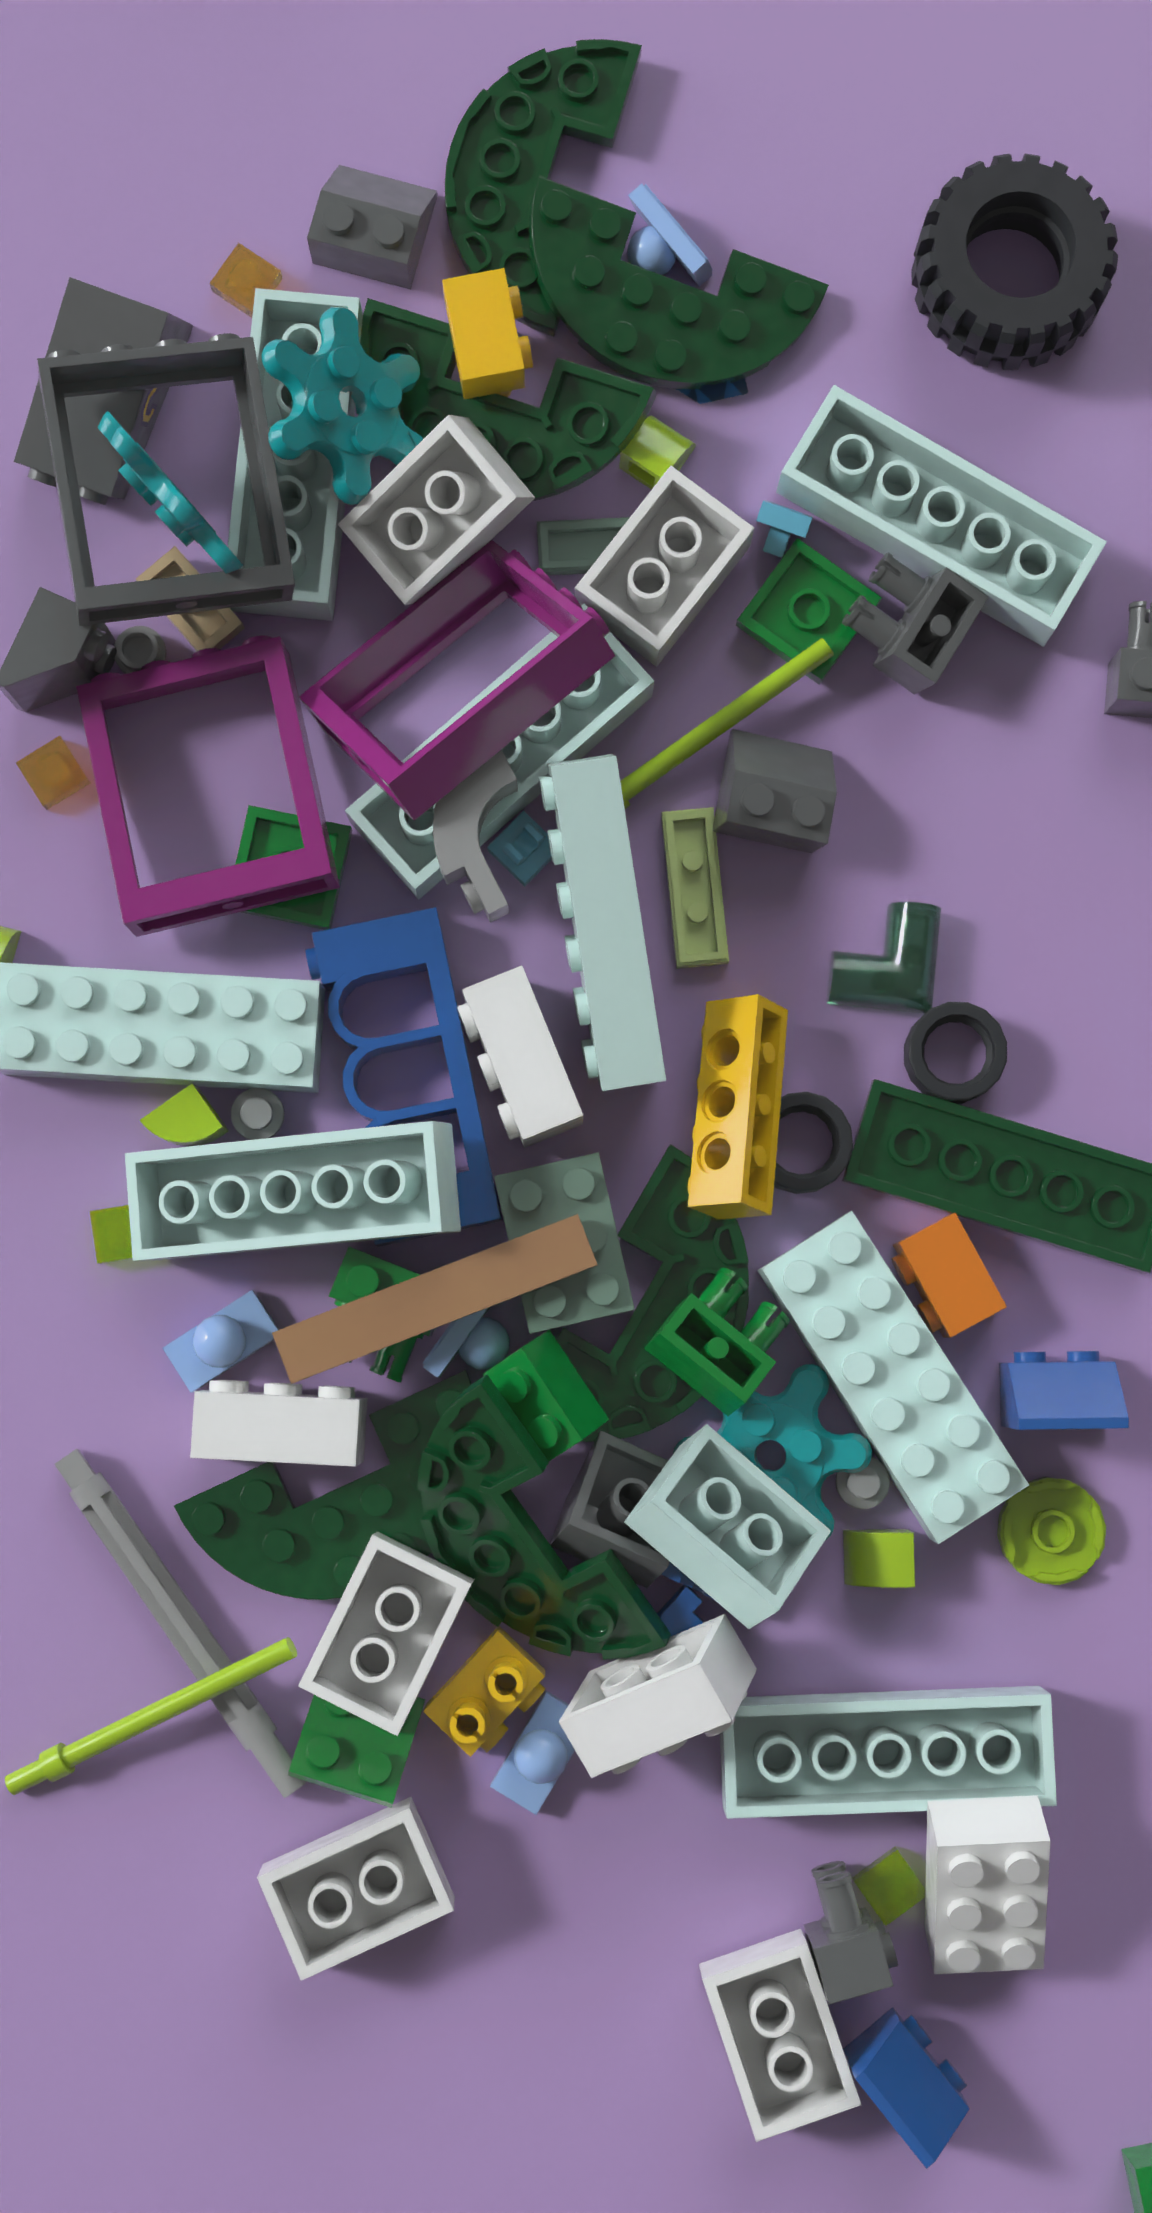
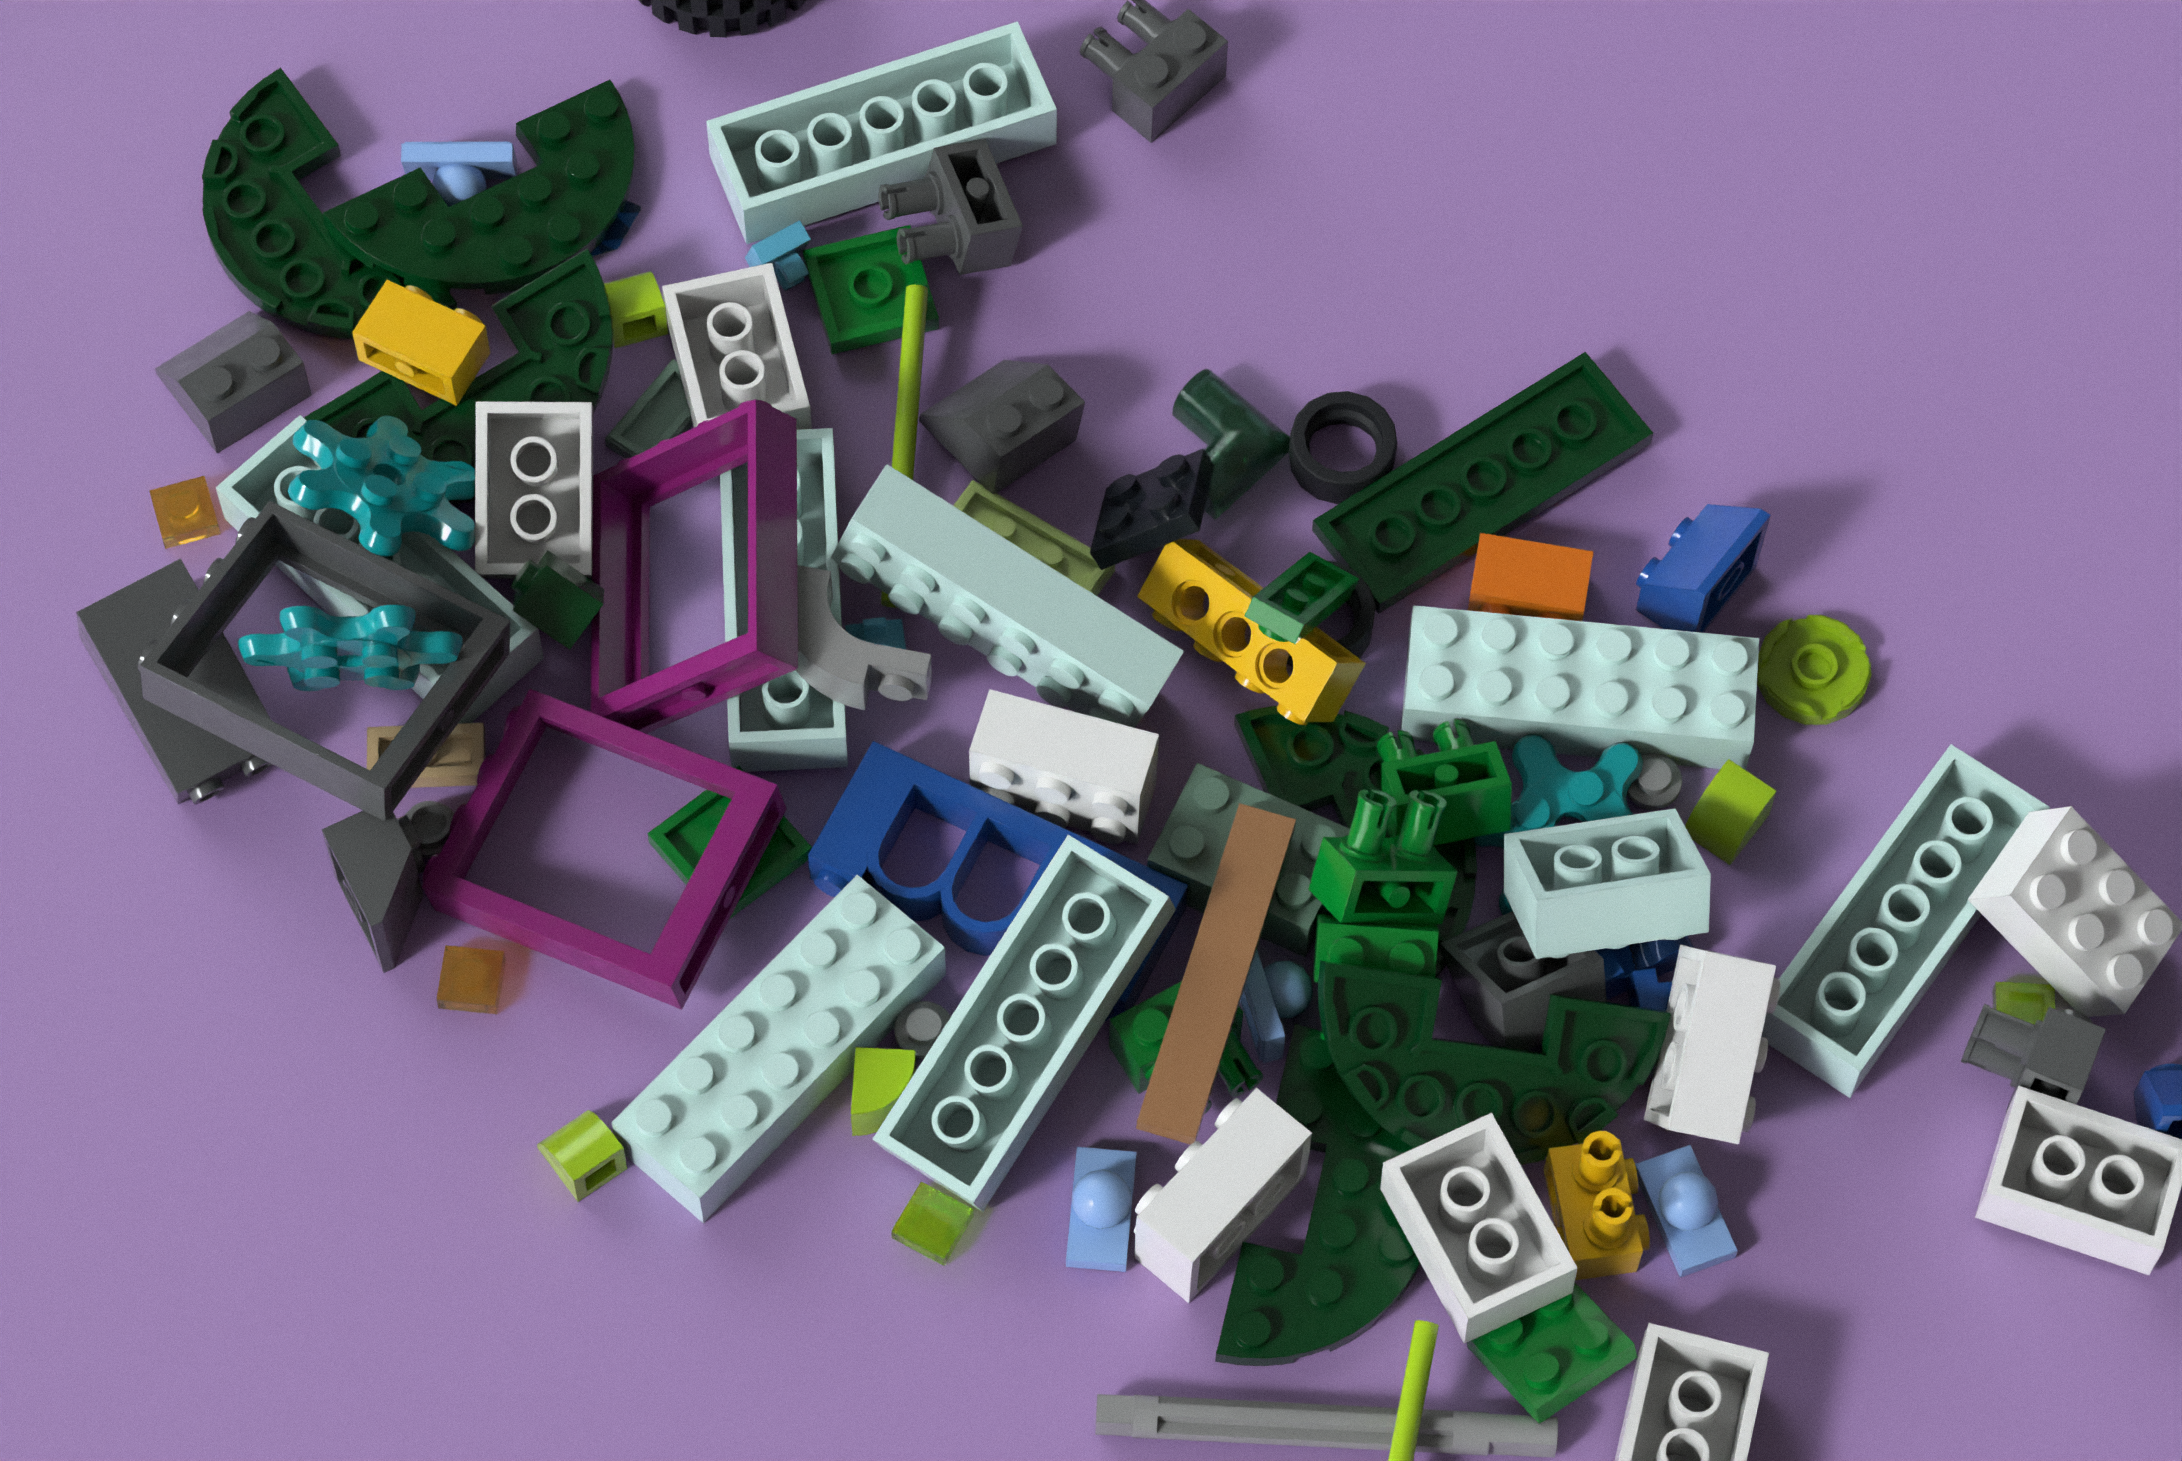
camera: 50 degrees left, 20 degrees down
(361, 597) = (556, 598): none -> dark green brick
(607, 1361) = (1383, 878): none -> green brick
(777, 1133) = (1300, 598): none -> green plate
(779, 961) = (1152, 508): none -> black plate

